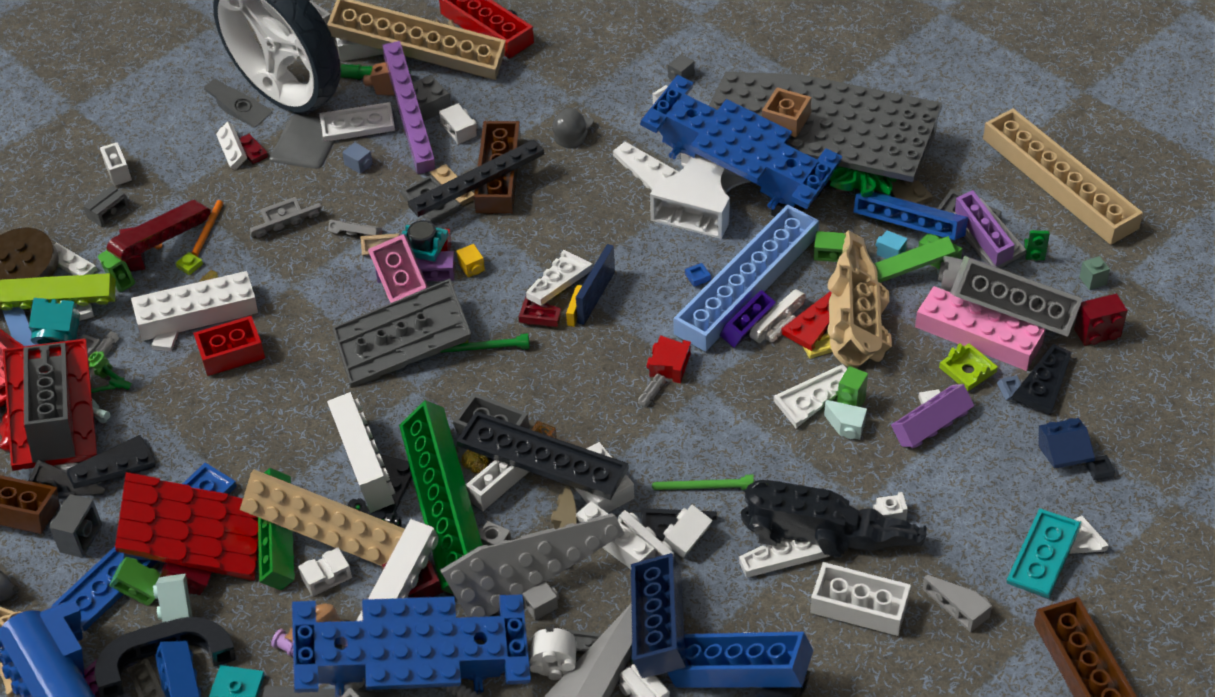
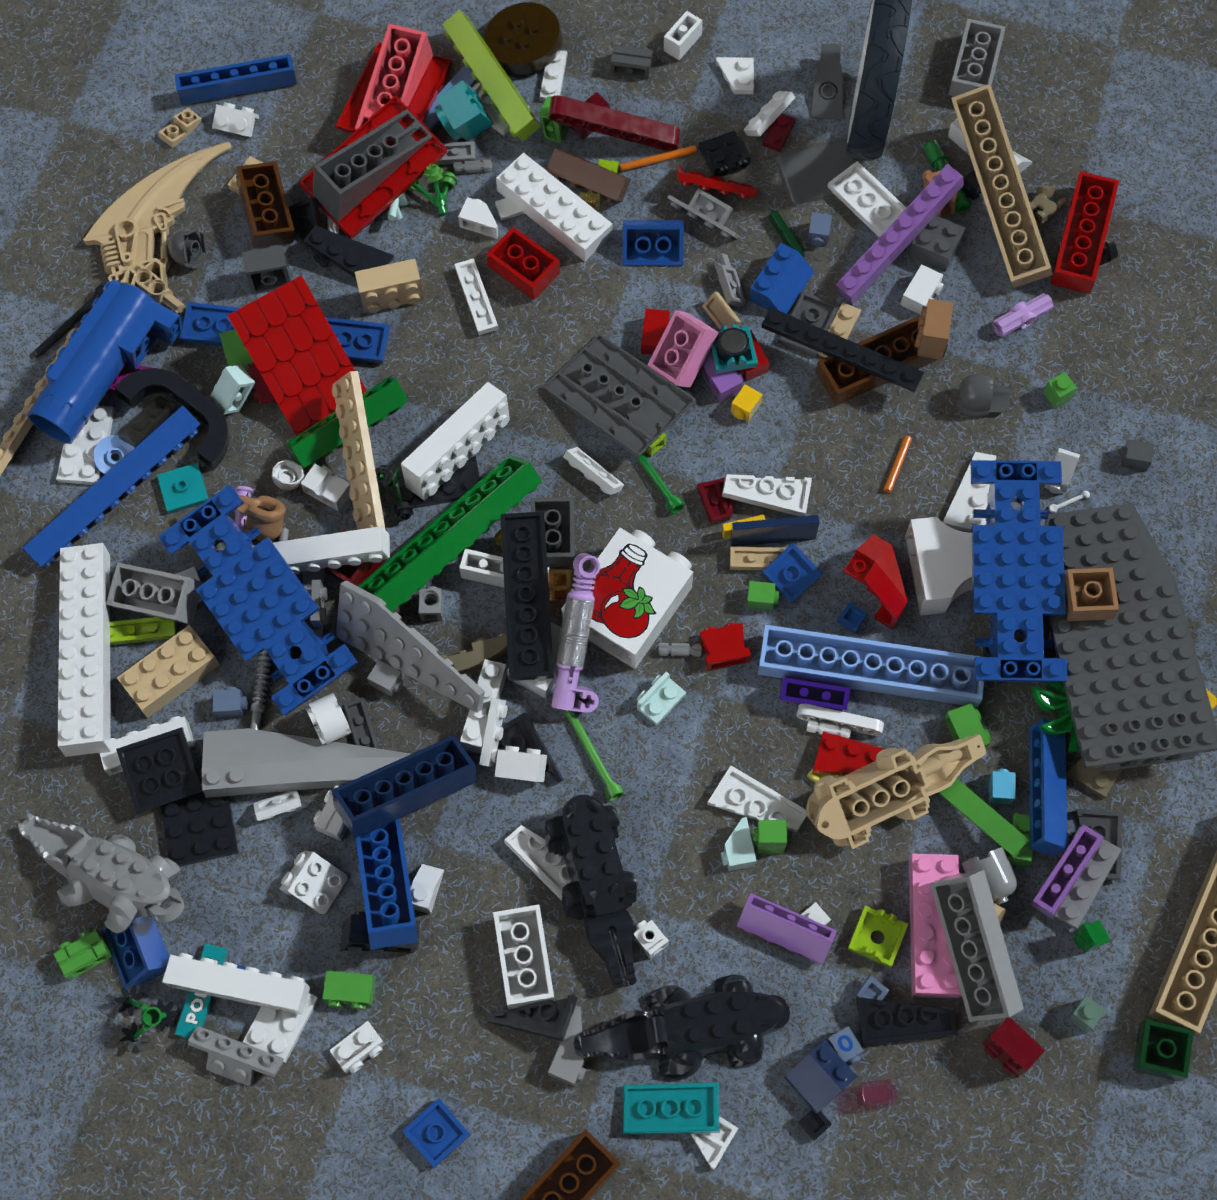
camera: 60 degrees right, 20 degrees up
(159, 360) = (478, 218): none -> white slope
(171, 443) = (389, 286): none -> tan brick
(177, 150) = (738, 73): none -> white wing
(187, 270) = (589, 175): none -> reddish brown brick
(229, 393) = (476, 296): none -> white plate
(242, 186) = (725, 154): none -> black plate
(260, 202) = (696, 177): none -> red wing
(281, 259) = (653, 242): none -> blue slope
(287, 594) = (287, 475): none -> white hair
(344, 180) = (784, 232): none -> dark green axle
(362, 290) = (653, 329): none -> red brick
(381, 198) = (781, 280): none -> blue slope
(455, 380) = (593, 471): none -> white plate
(507, 114) = (934, 329): none -> medium nougat brick
(523, 80) = (1022, 315): none -> lavender piece
(587, 396) = (635, 595): none -> brick
(588, 198) = (897, 464): none -> orange bar
(600, 85) = (1060, 390): none -> bright green brick
(603, 430) = (575, 638): none -> piece
(610, 307) = (752, 557): none -> tan plate
(636, 291) = (792, 572): none -> blue tile
(642, 319) = (762, 595): none -> bright green brick
(684, 238) = (877, 568): none -> red panel
(686, 420) = (660, 698): none -> light aqua bracket
(924, 604) = (543, 1019): none -> black wing
(987, 488) = (690, 1028): none -> black animal
(1045, 415) = (846, 1046): none -> sand blue brick
(1096, 418) = (877, 1094): none -> clear pink brick
(1143, 242) = (1163, 1050): none -> dark green brick

